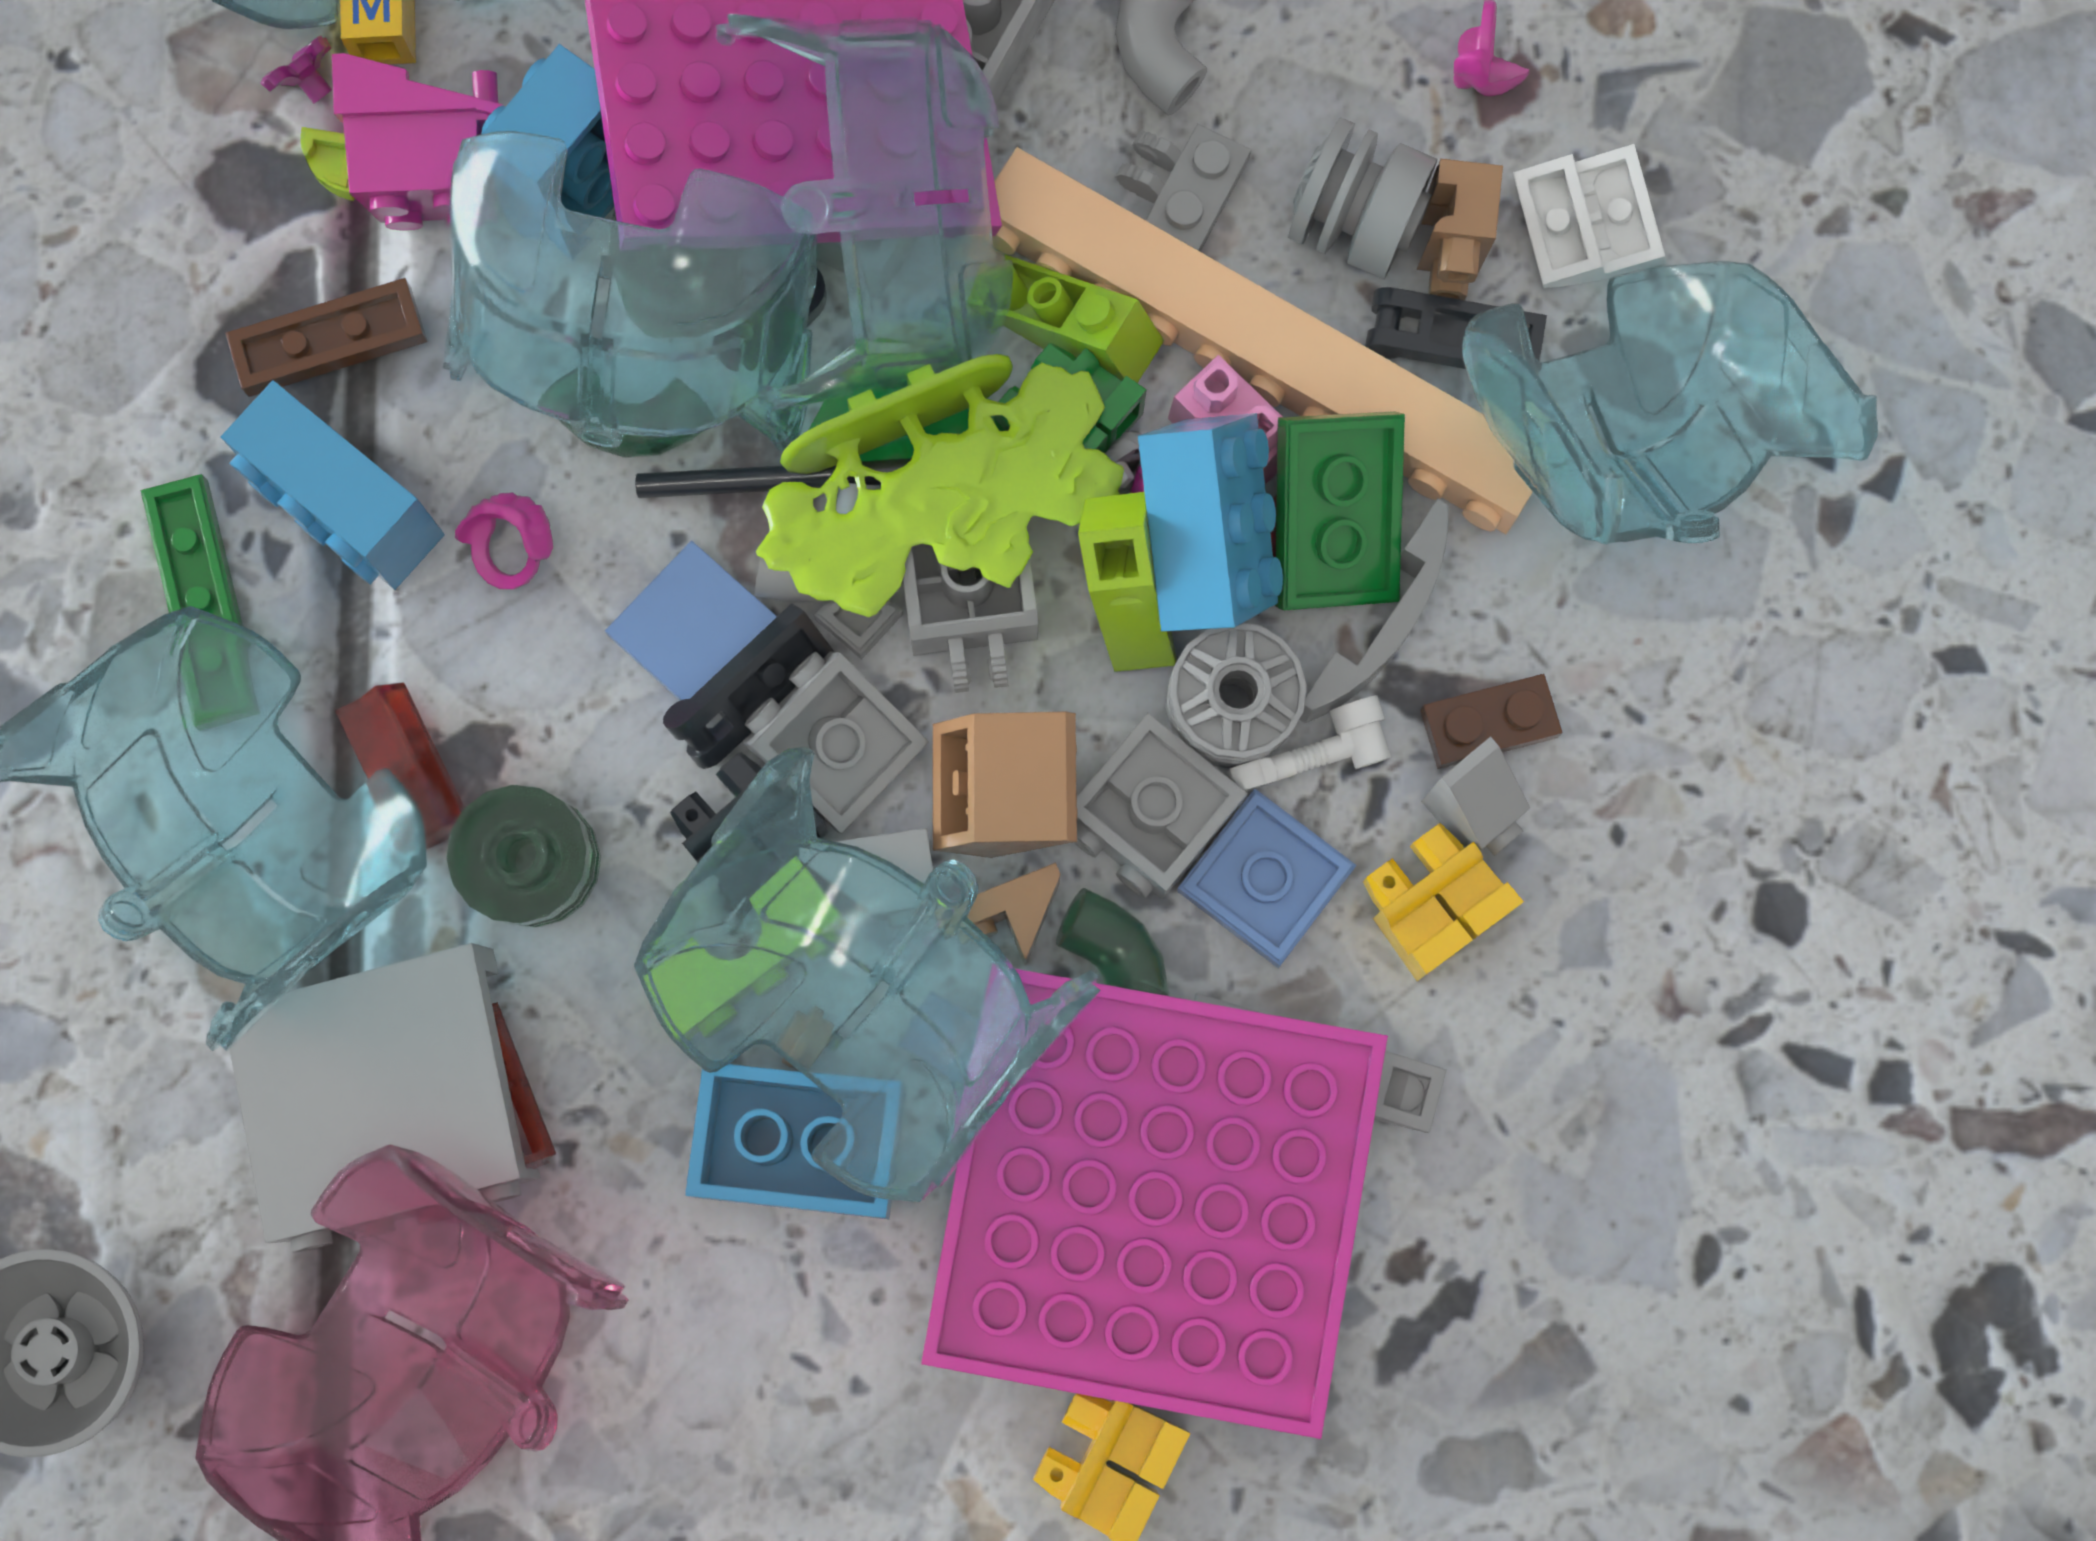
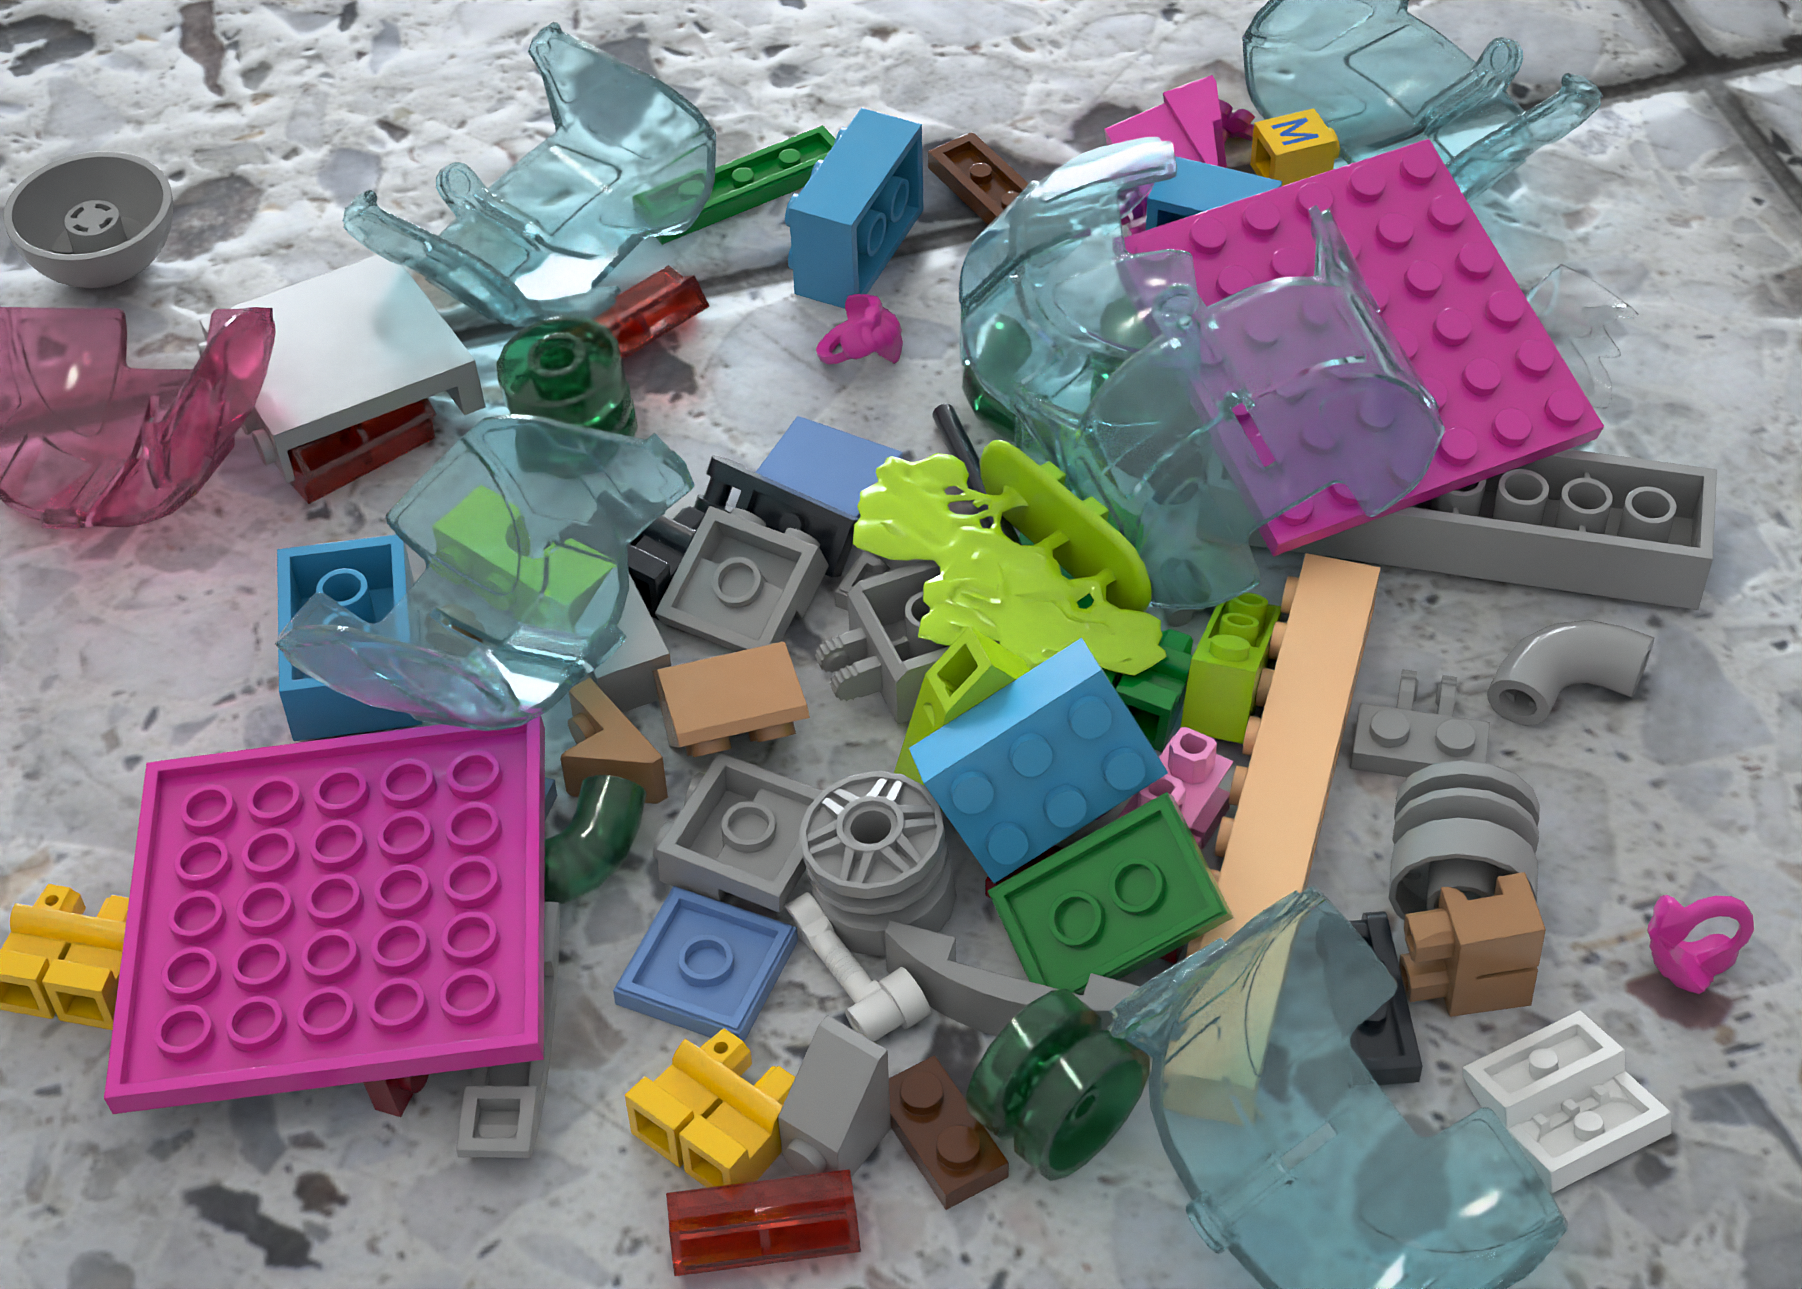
camera: 80 degrees right, 30 degrees down
(1514, 608) = (1057, 1084): none -> clear green wheel
(1555, 887) = (762, 1222): none -> clear red piece

